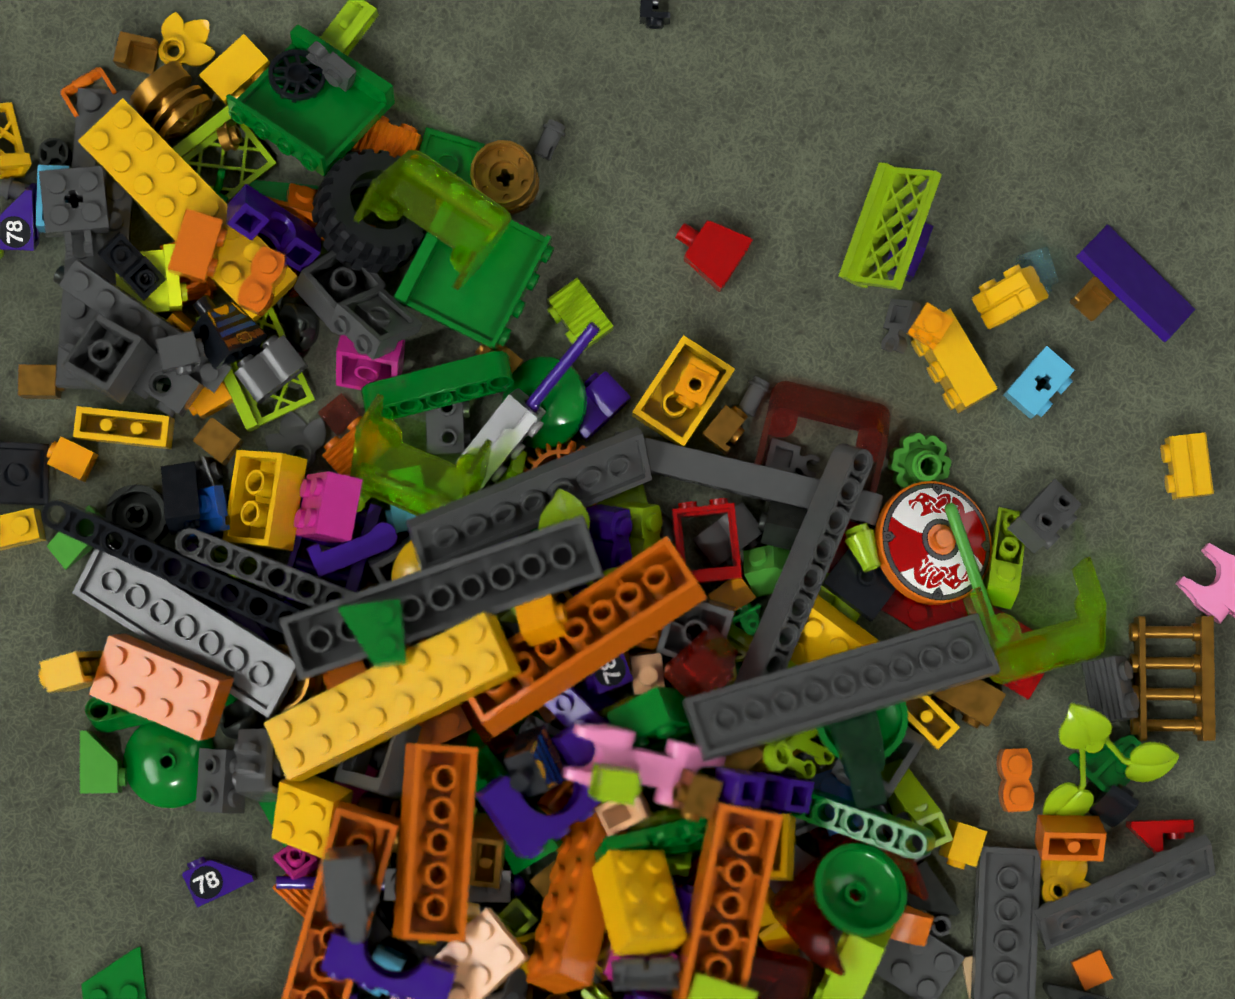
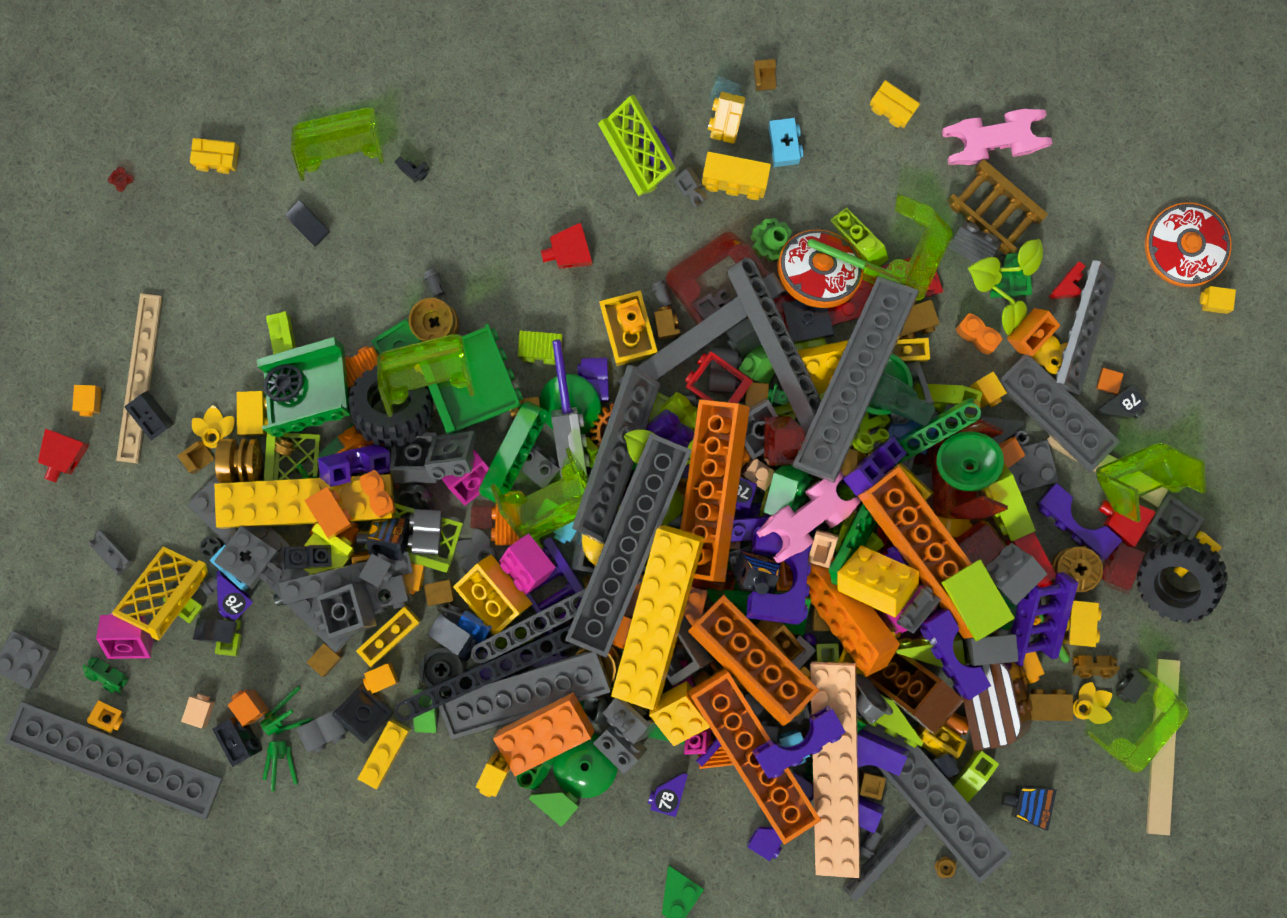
camera: 40 degrees left, 0 degrees up
(83, 82) = (186, 498): orange piece -> none
(334, 68) = (298, 360): dark grey plate -> none
(350, 888) = (740, 726): dark grey hinge -> none
(378, 630) = (617, 592): green wing -> none
(380, 539) = (566, 552): dark purple leg -> none
(541, 620) = (686, 502): light orange brick -> none
(614, 784) = (807, 538): lime brick -> none
(696, 795) = (848, 501): pearl gold brick -> none
(863, 546) = (790, 304): lime cone -> none
(930, 326) = (708, 169): light orange brick -> none
(1045, 516) = (856, 199): dark grey brick -> none
(1114, 805) = (1036, 294): black slope -> none
(1135, 283) = (777, 48): dark purple tile -> none

